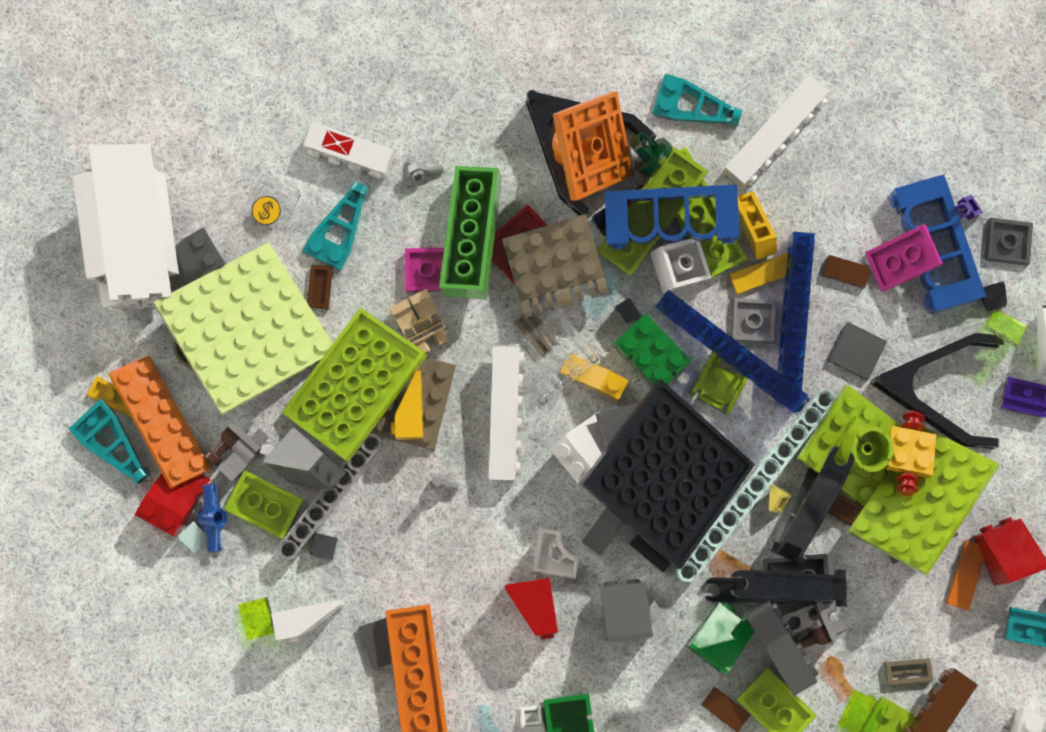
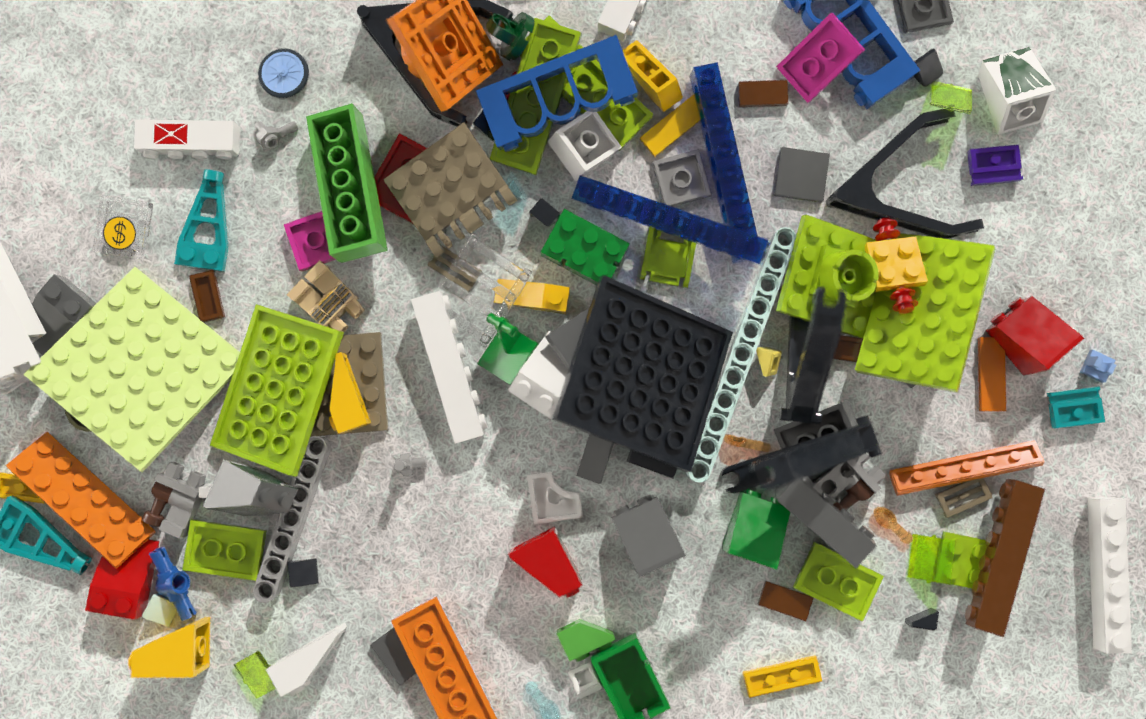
camera: 15 degrees left, 5 degrees up
(196, 574) = (175, 655): none -> yellow slope
(446, 122) = (283, 73): none -> light blue wheel
(541, 680) = (583, 637): none -> bright green slope
(558, 415) = (507, 350): none -> green plate
(918, 647) = (966, 467): none -> orange tile

